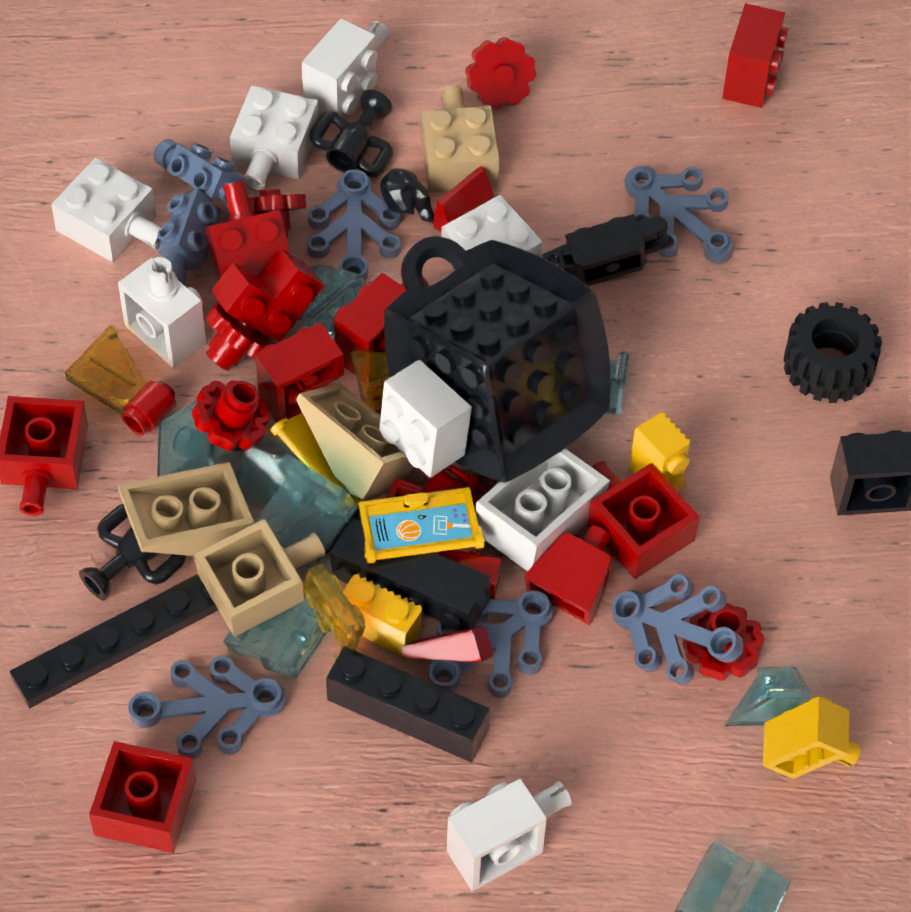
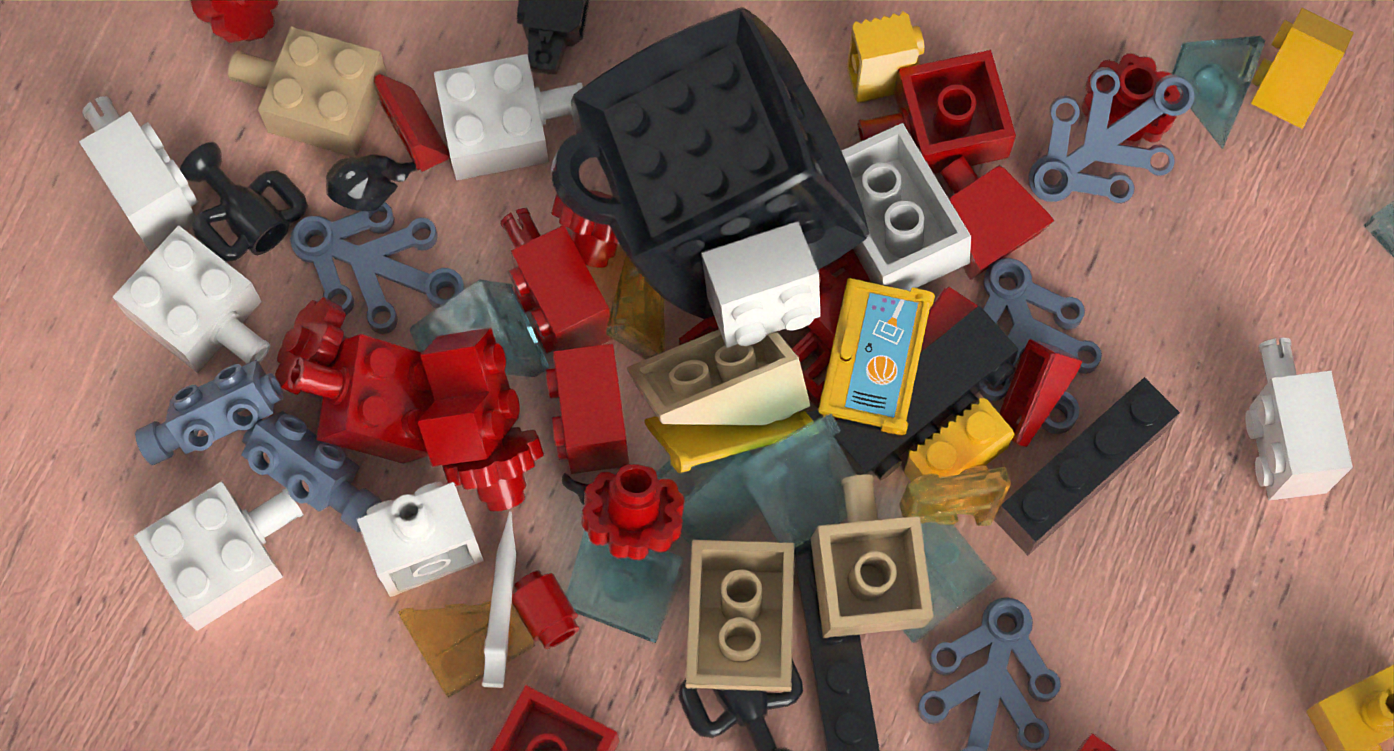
camera: 65 degrees left, 15 degrees up
(112, 380) = (498, 628): none -> white piece

